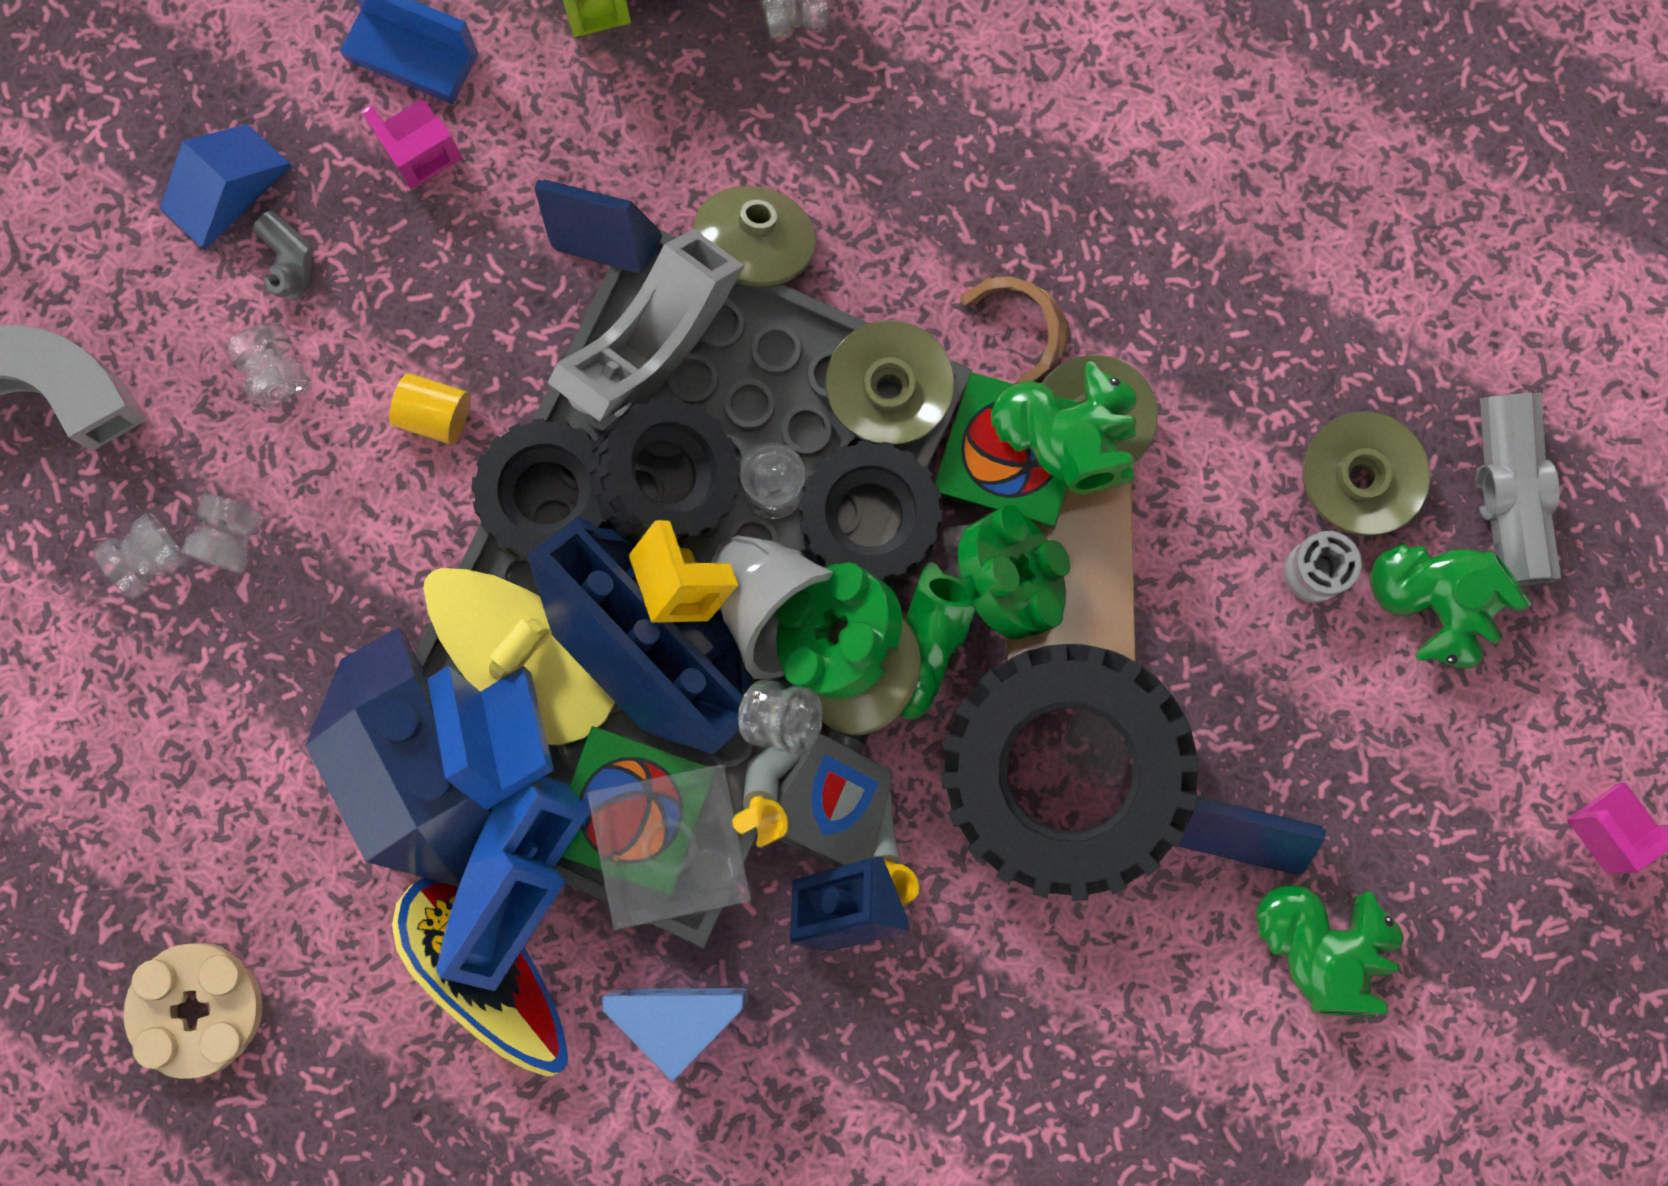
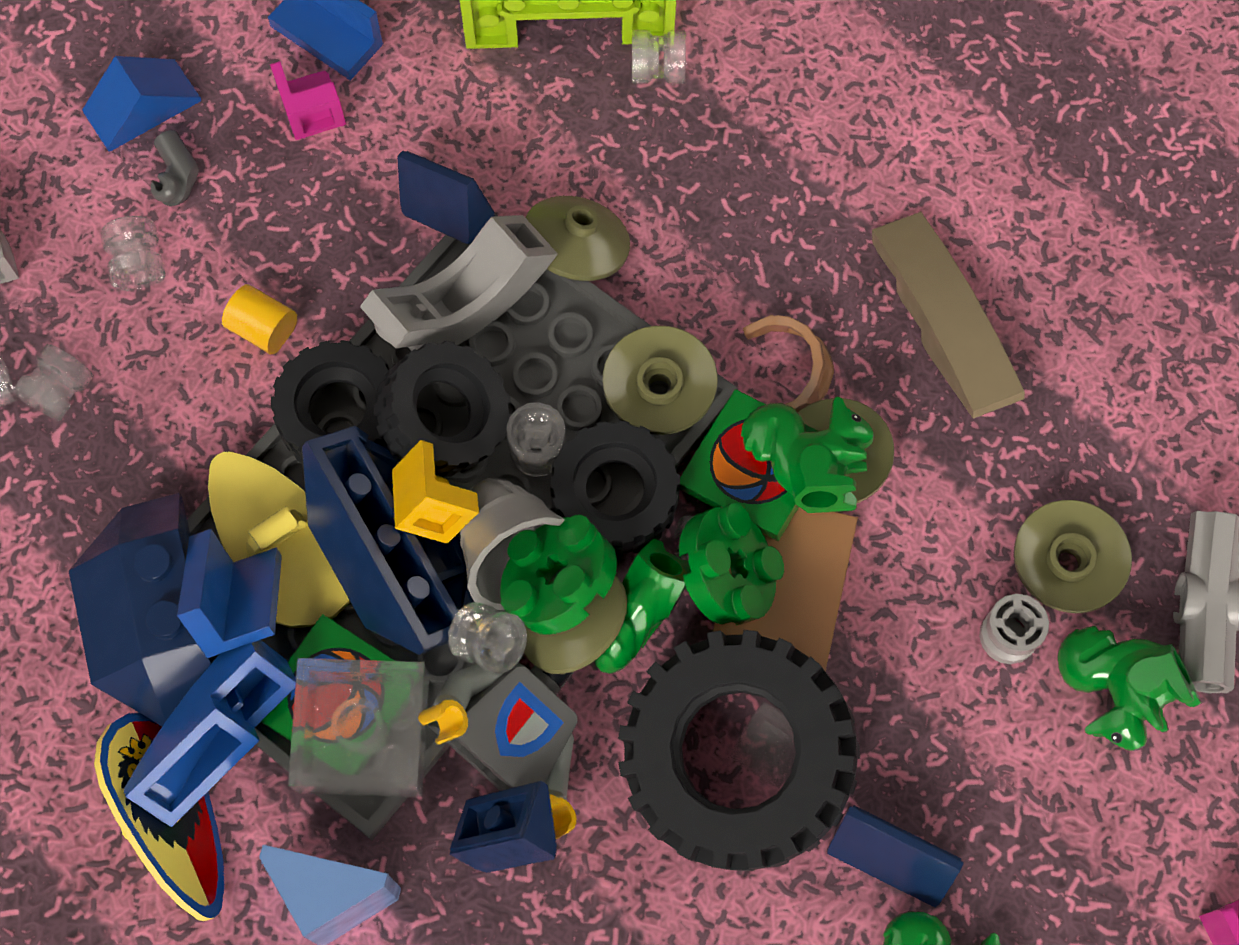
camera: 15 degrees right, 10 degrees down
(1179, 233) = (949, 315): none -> dark tan slope

